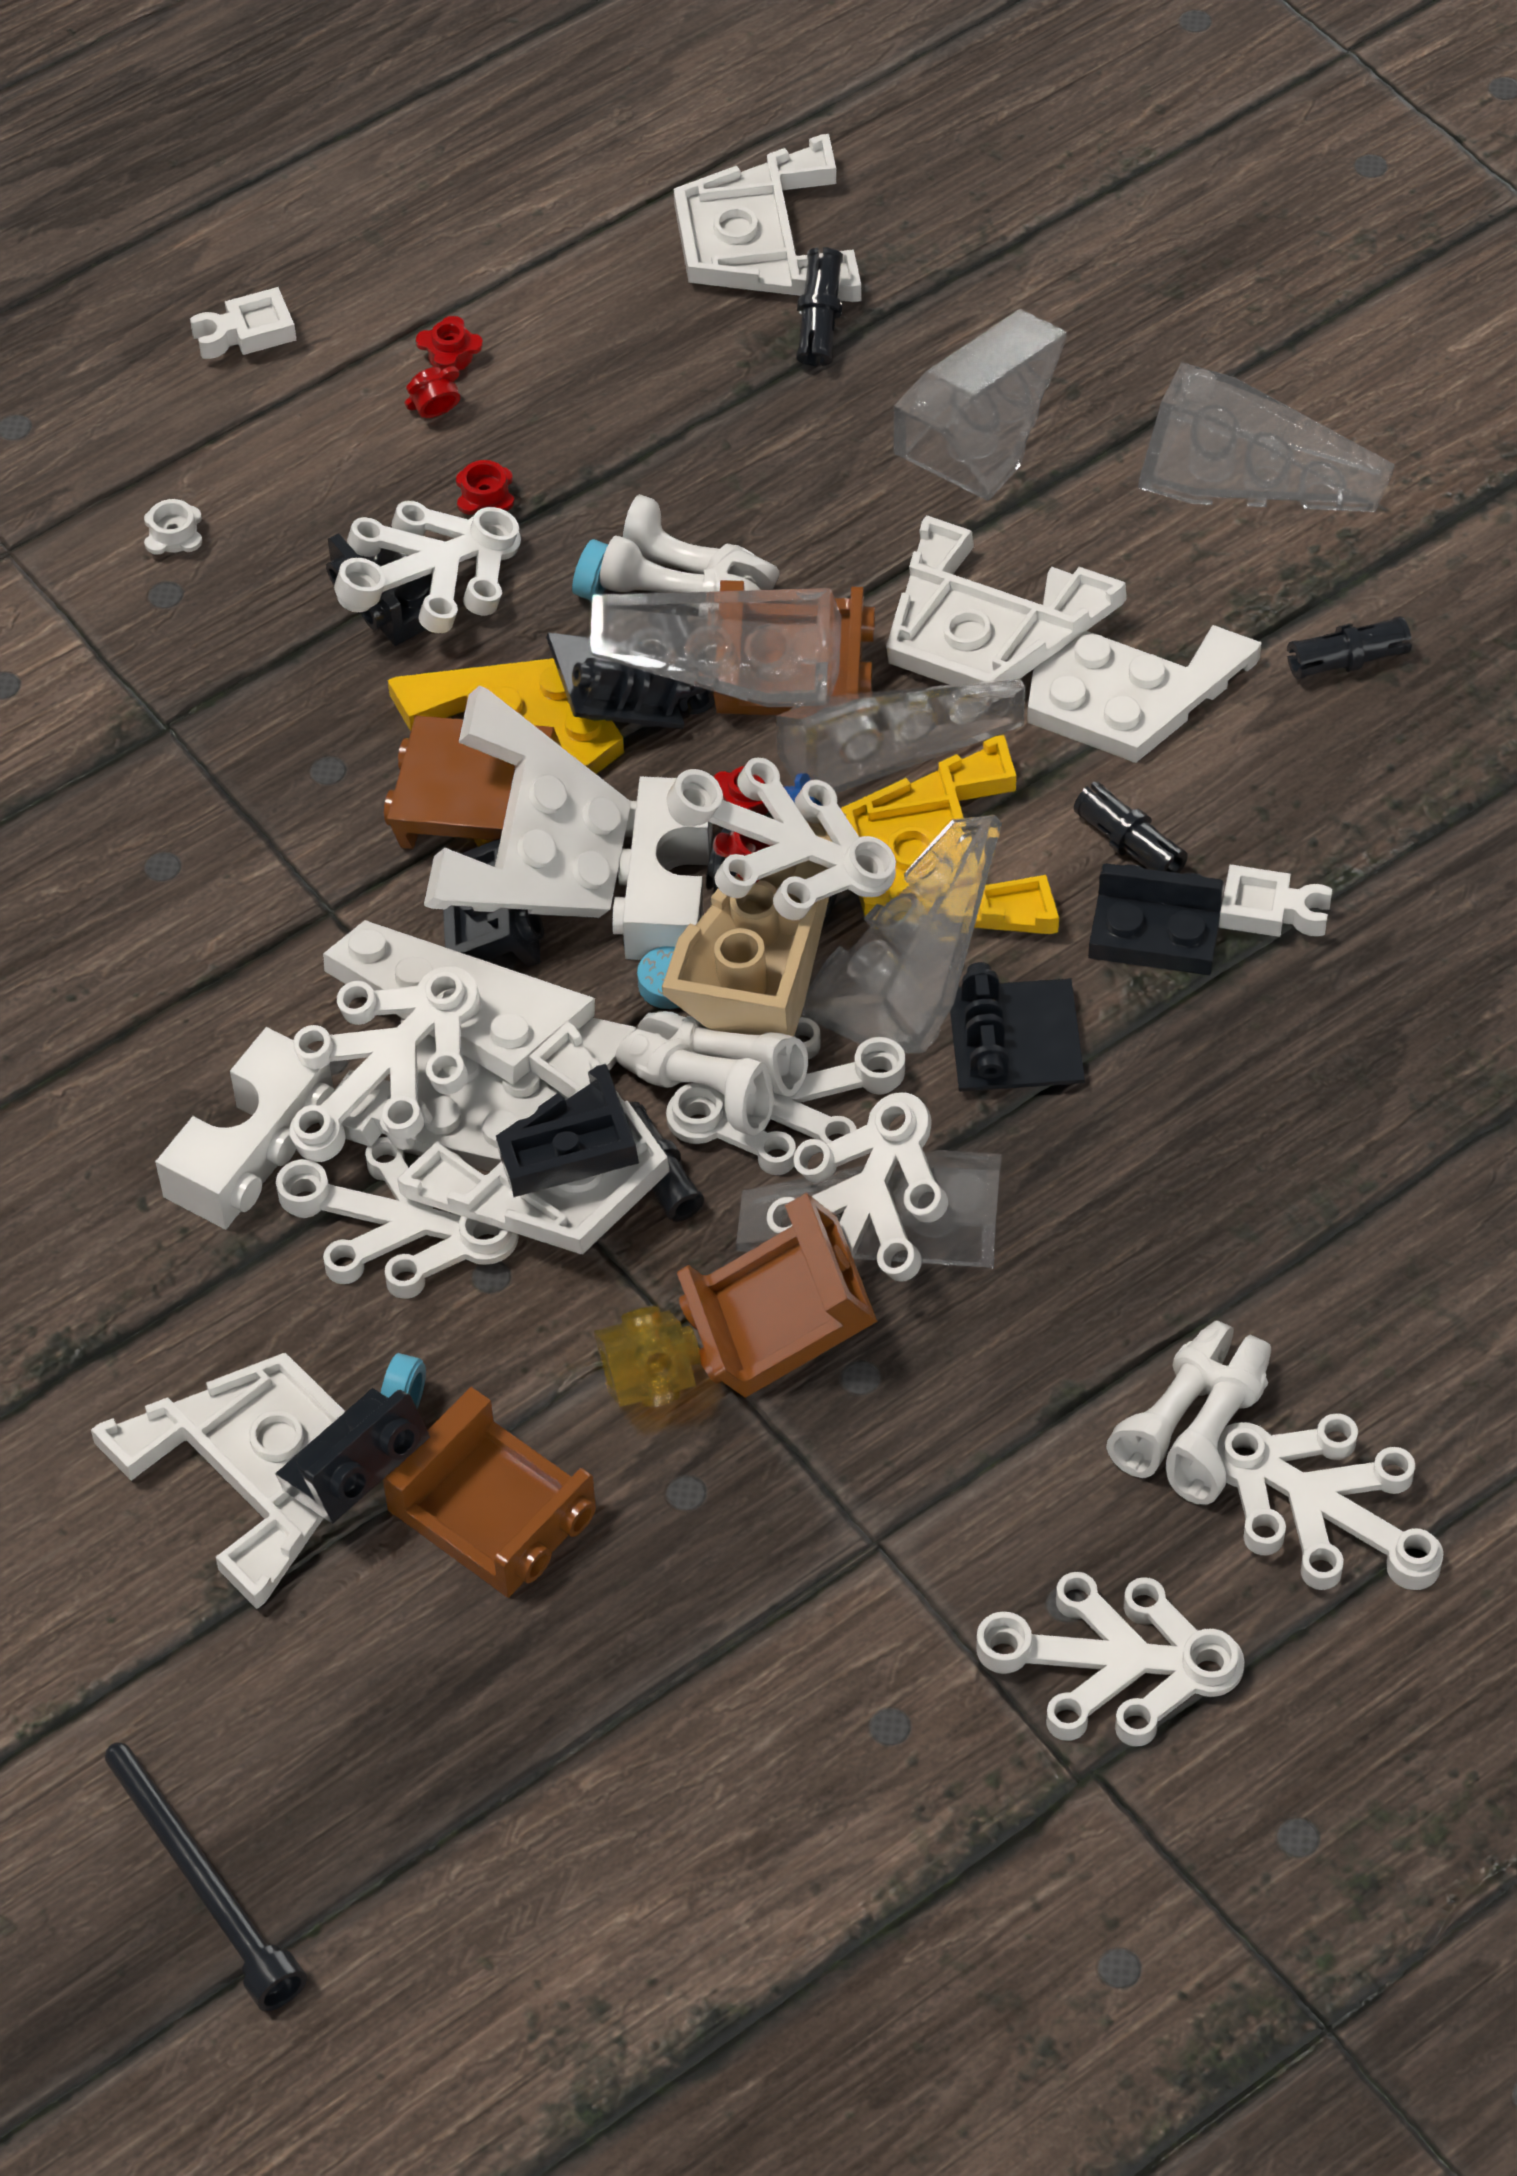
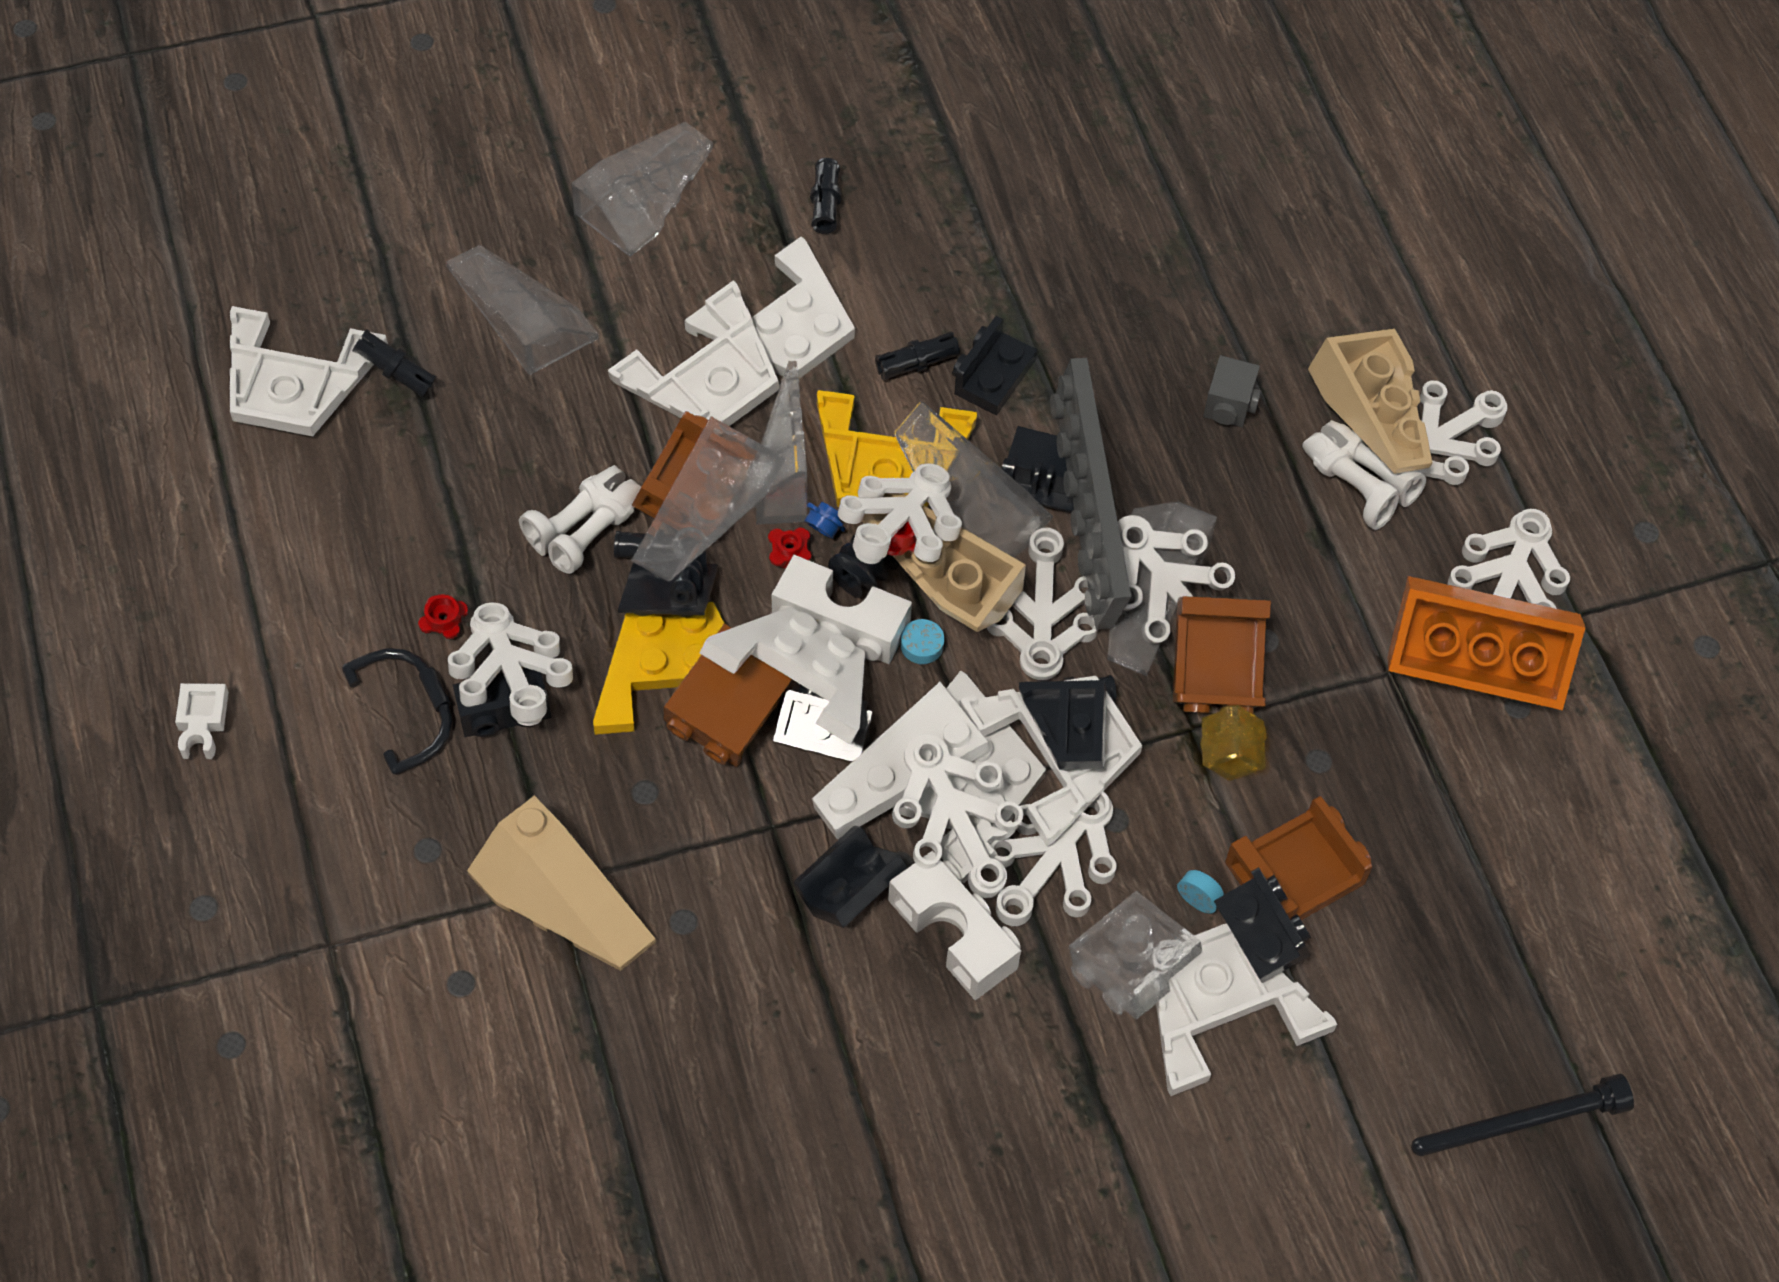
camera: 75 degrees left, 5 degrees up
(156, 722) = (548, 878): none -> tan wedge
(172, 527) = (375, 812): white plate -> none
(261, 1322) = (1133, 955): none -> clear plate
(268, 990) = (847, 877): none -> black bracket
(383, 514) = (434, 690): none -> black piece
(433, 391) = (338, 617): red plate -> none
(449, 343) = (294, 605): red plate -> none
(587, 573) = (558, 571): medium azure tile -> none
(740, 1066) = (992, 658): white piece -> none
(936, 1617) = (1485, 643): none -> orange brick
(940, 1042) = (1092, 497): none -> dark grey plate
(1255, 1207) = (1232, 392): none -> dark grey brick
(1263, 901) = (1007, 304): white plate -> none
(1331, 1374) = (1373, 391): none -> tan wedge

